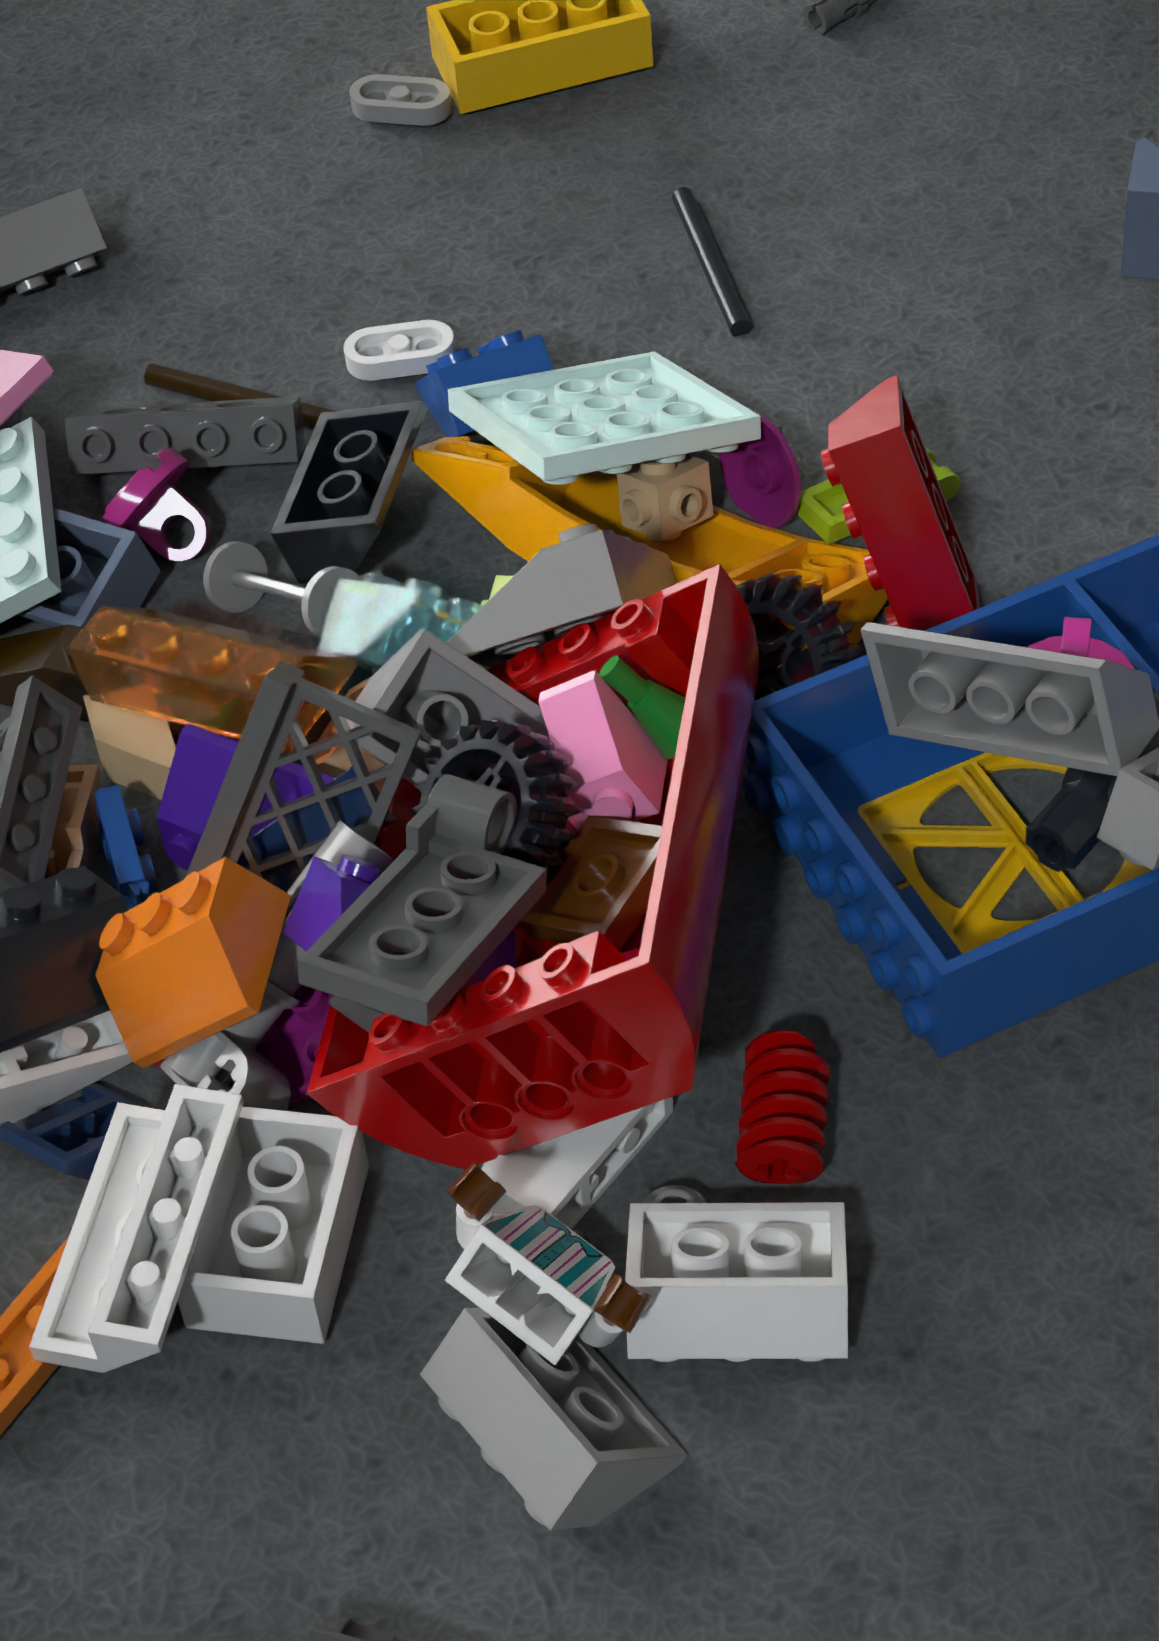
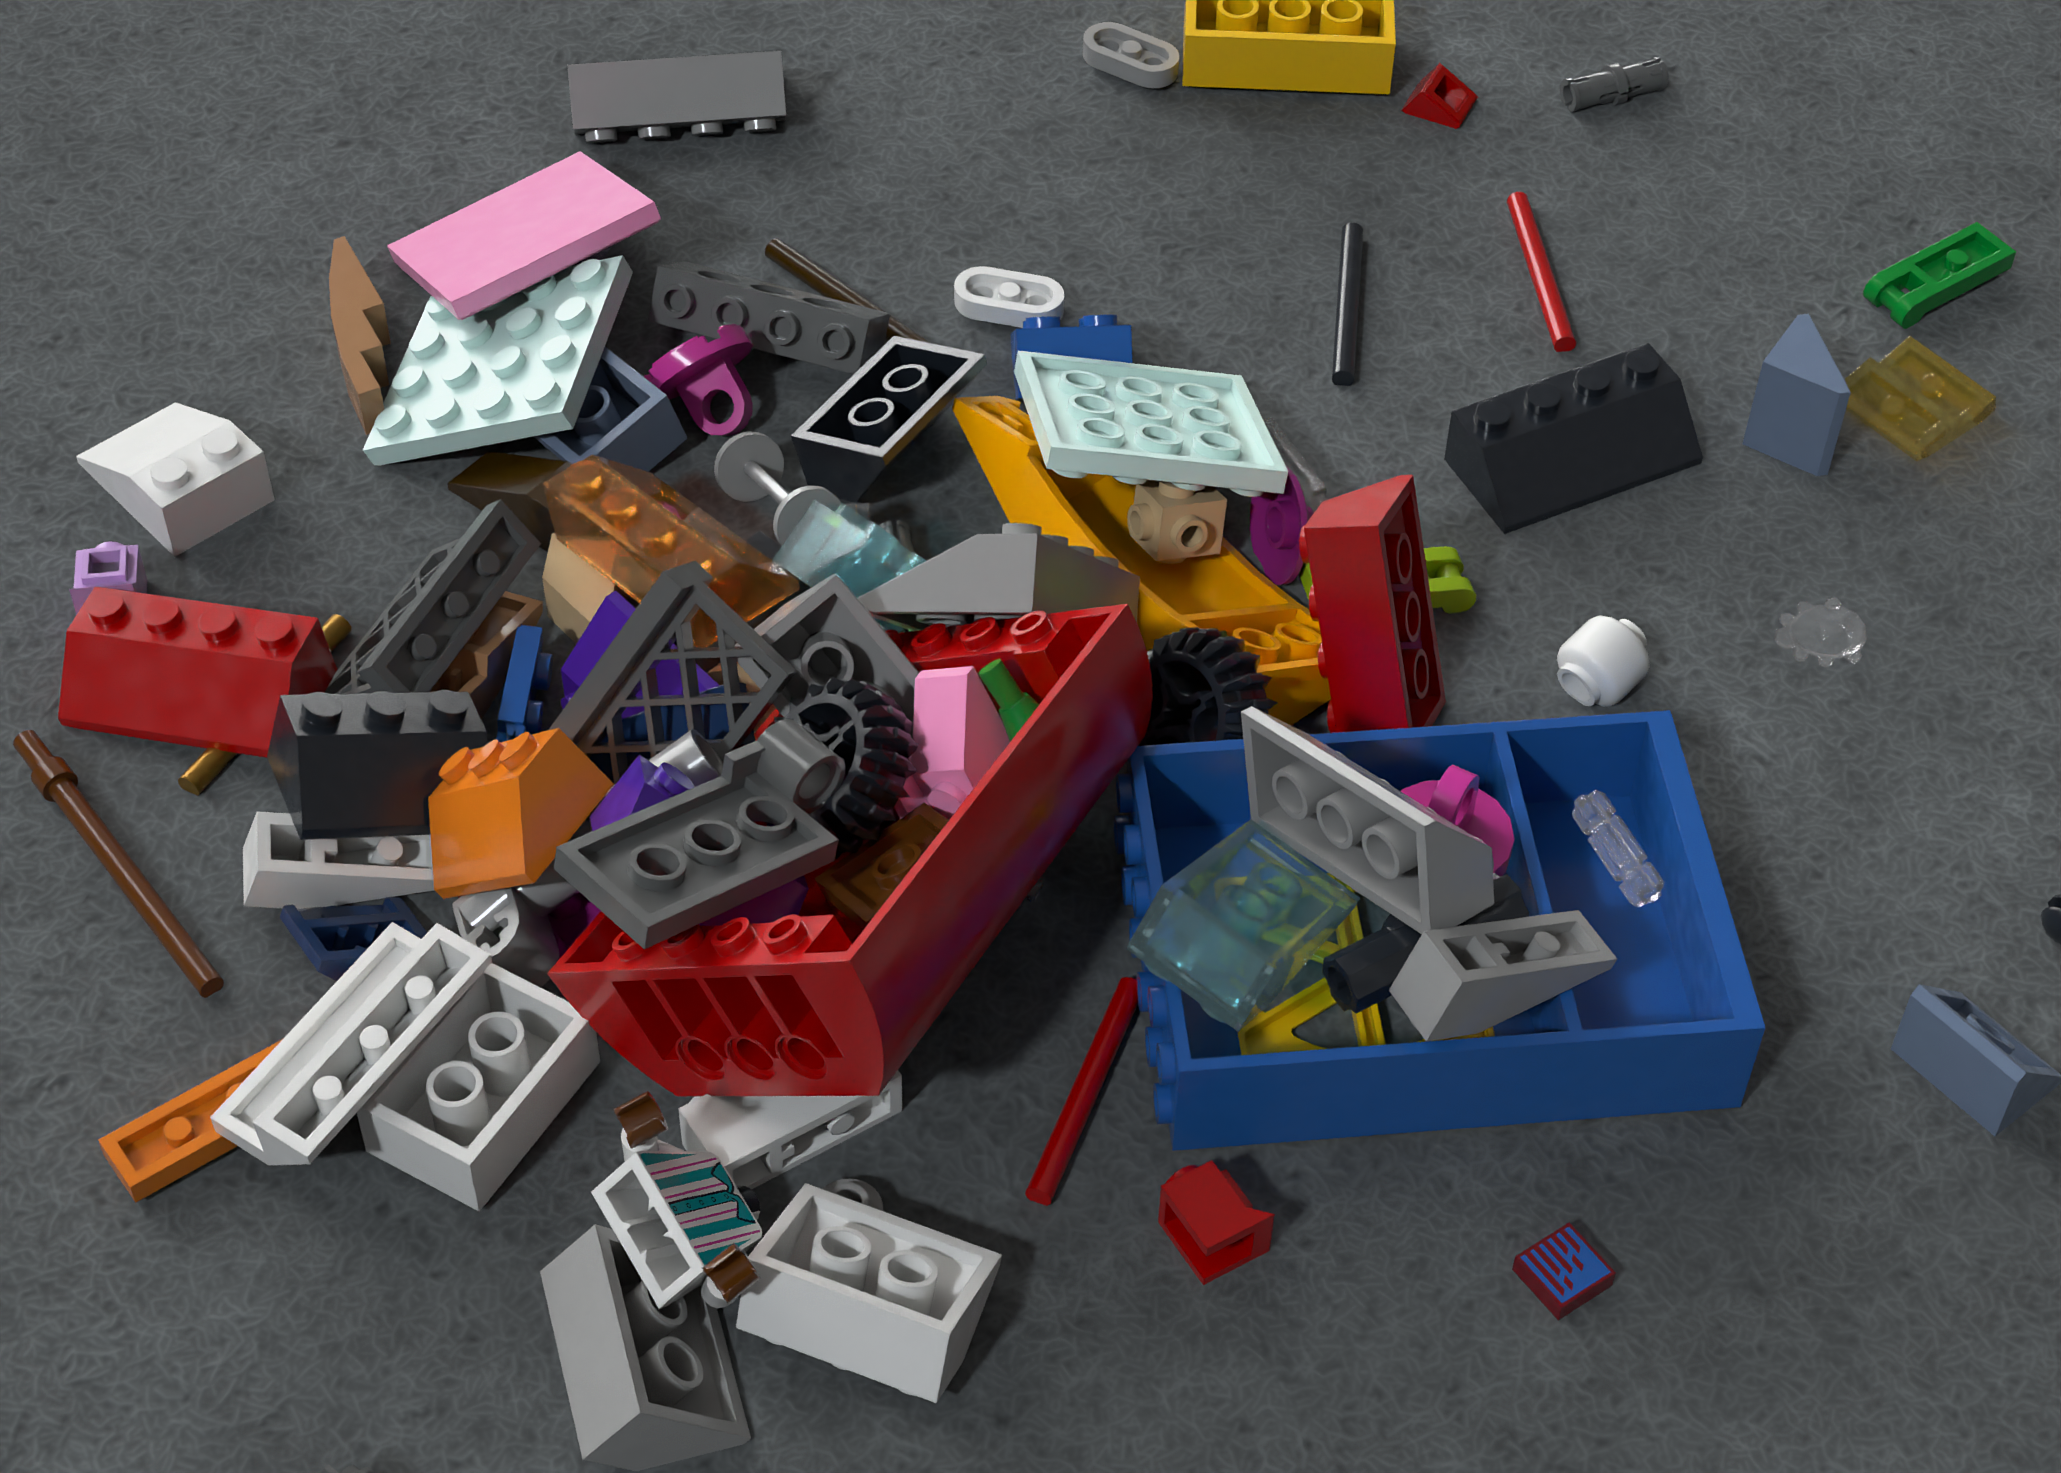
camera: 15 degrees right, 0 degrees up
(700, 56) = (1441, 98): none -> red slope
(782, 1110) = (992, 1146): red piece -> none
(834, 1033) = (1083, 1093): none -> red bar
(869, 181) = (1541, 272): none -> red bar
(936, 826) = (1240, 923): none -> clear light blue slope
(977, 314) = (1573, 438): none -> black slope
(1012, 1105) = (1212, 1221): none -> red window
(1103, 499) = (1603, 661): none -> white head

